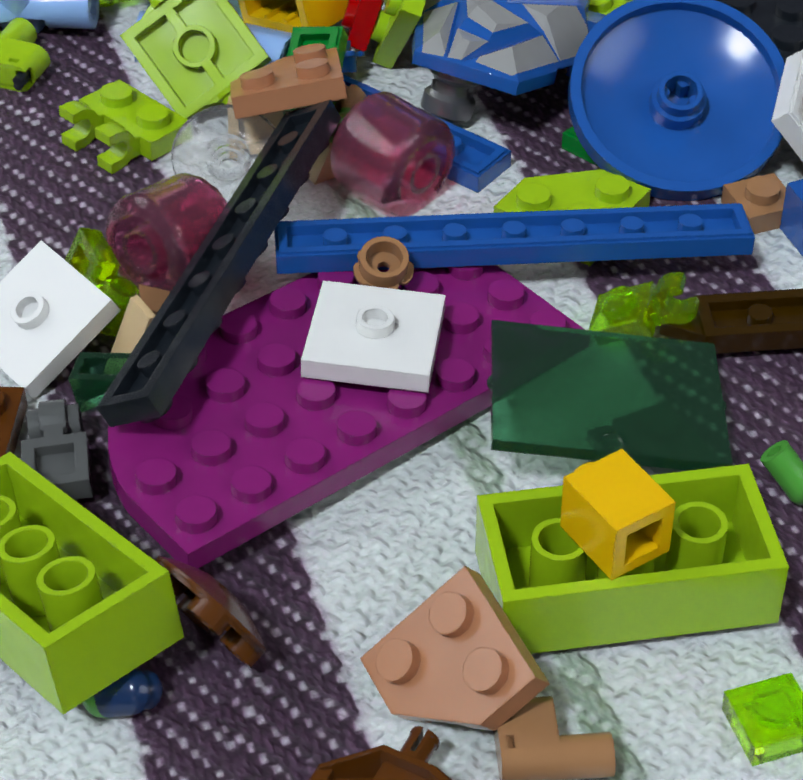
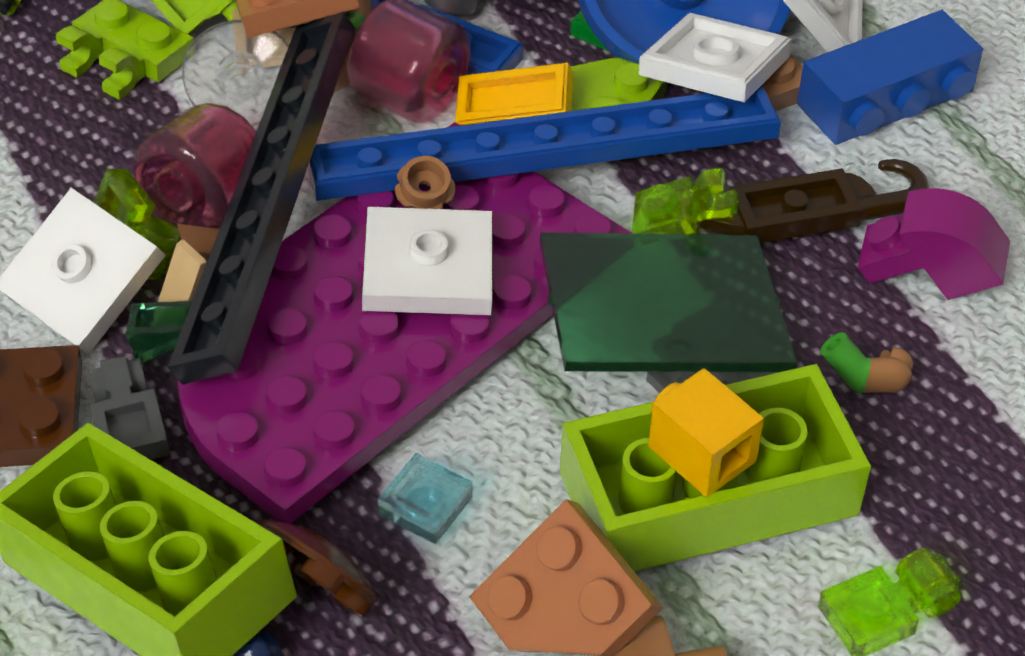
camera: 10 degrees left, 5 degrees up
(333, 560) = (425, 498): none -> clear light blue plate
(493, 191) = (514, 93): none -> yellow tile
(698, 172) = (715, 57): none -> white plate

